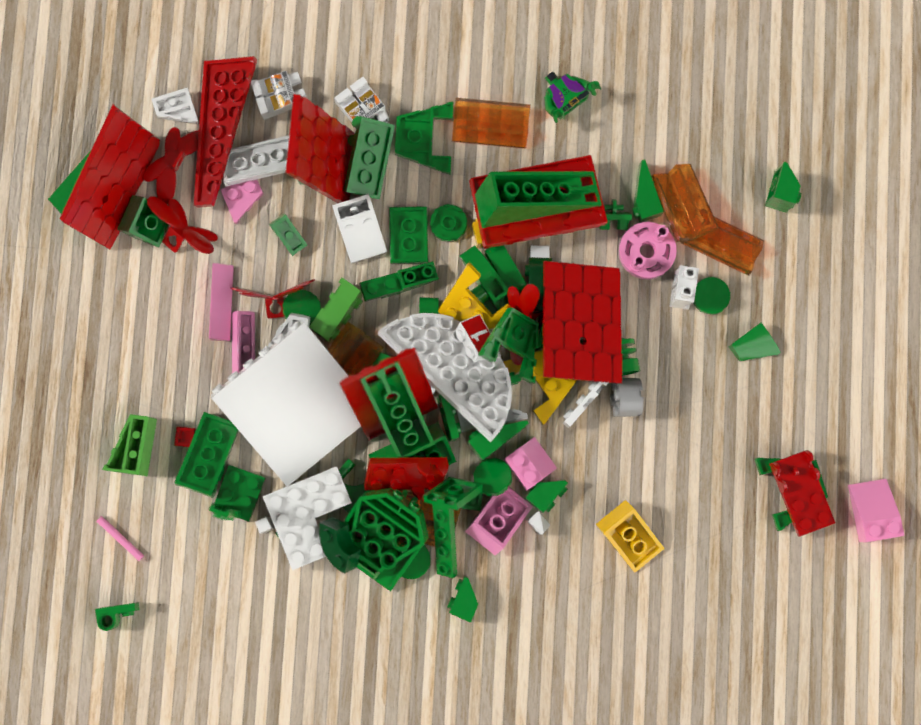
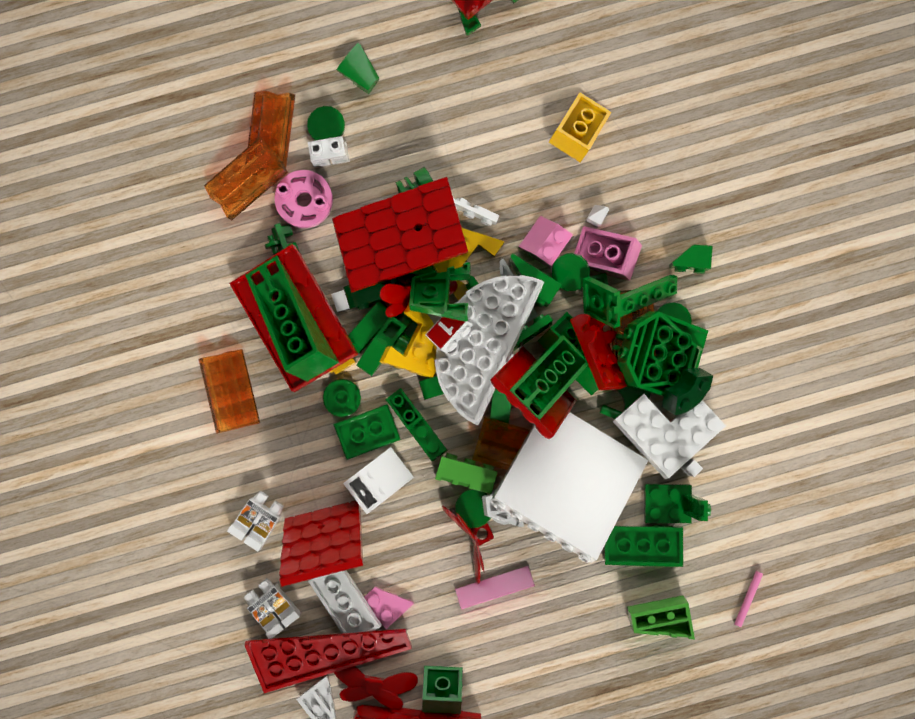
camera: 105 degrees left, 5 degrees up
(114, 612) = (817, 578): green plate -> none
(175, 216) = (428, 662): red piece -> none
(184, 436) = (633, 574): red tile -> none
(242, 338) = (525, 552): bright pink slope -> none
(288, 234) = (407, 547): green plate -> none
(368, 156) = (305, 497): green hinge -> none
(415, 136) = (266, 459): green wing -> none
(545, 493) = (569, 217): green slope -> none
(566, 94) = (175, 327): green torso -> none
(627, 398) = (455, 168): light grey brick -> none
(646, 200) = (254, 216): green slope -> none
(783, 189) = (199, 88): green slope -> none

